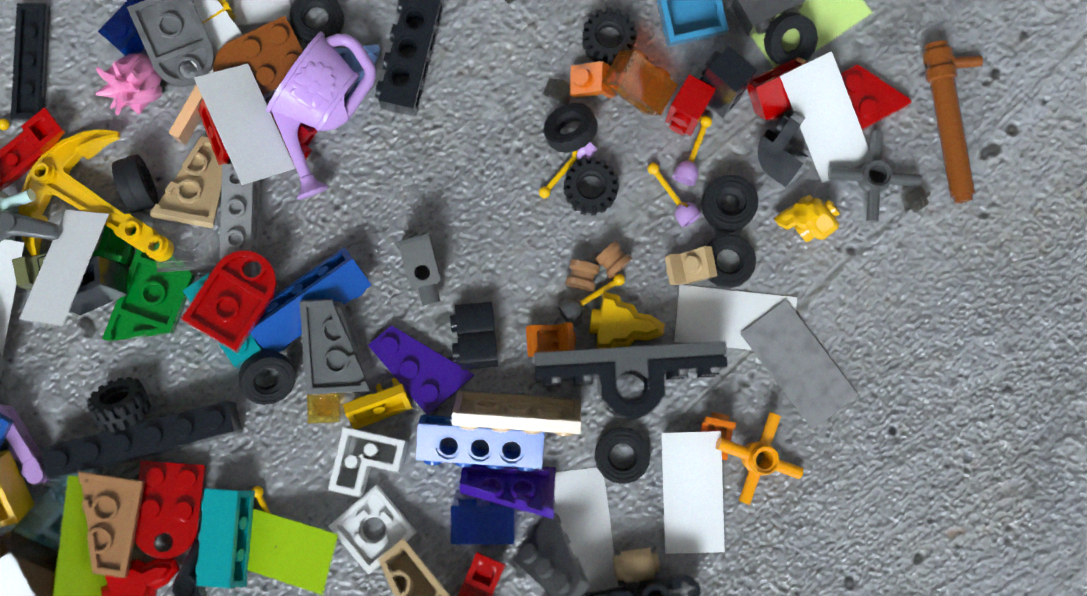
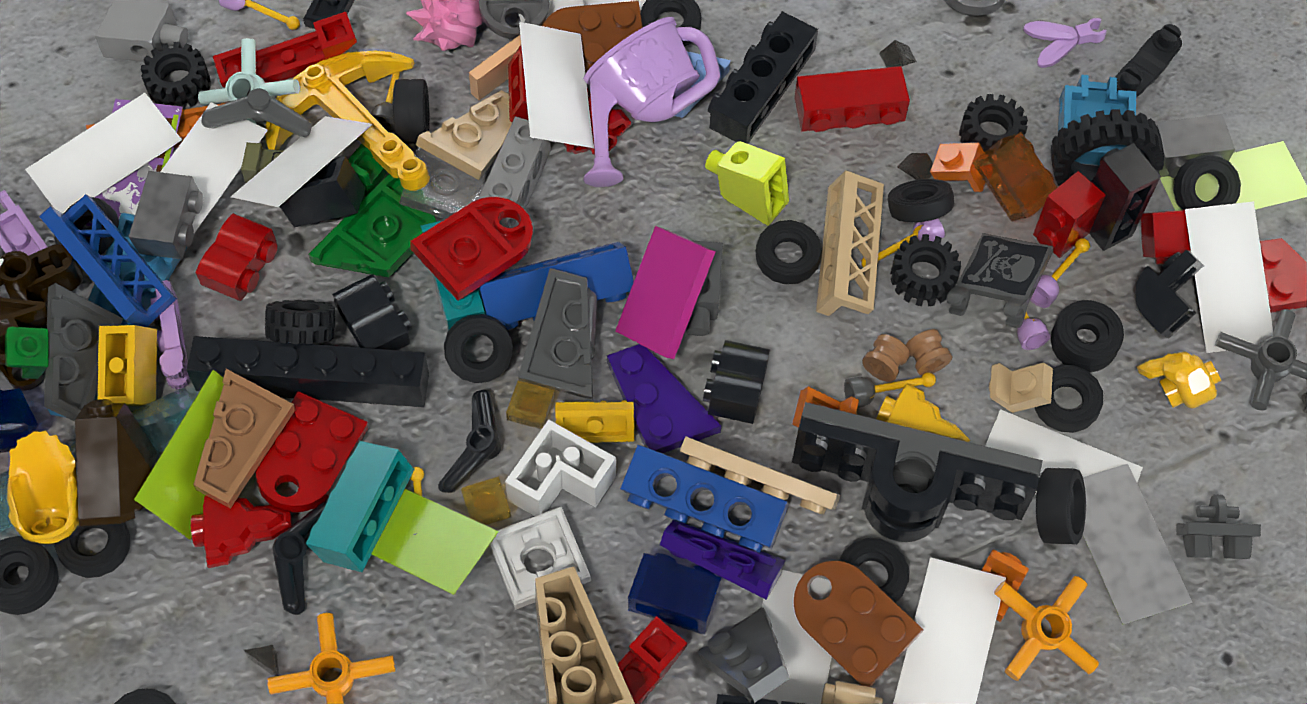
camera: 20 degrees right, 20 degrees down
(46, 359) = (237, 257): none -> red brick
(110, 190) = (384, 112): none -> dark grey hinge
(174, 376) = (371, 316): none -> black brick
(297, 452) = (481, 443): none -> black piece
(318, 499) = (486, 501): none -> clear yellow plate
(396, 286) = (665, 292): none -> dark pink tile
(430, 154) = (751, 180): none -> neon yellow torso
(466, 192) = (788, 232): none -> black tyre
(488, 48) = (851, 99): none -> red brick
(516, 186) = (837, 244): none -> tan fence
(621, 500) = (855, 622): none -> dark orange plate
(651, 168) = (1002, 271): none -> flag
(694, 44) = (1100, 132): none -> black tyre
(746, 361) = (1061, 506): none -> black tyre
(864, 332) = (1236, 536): none -> dark grey hips

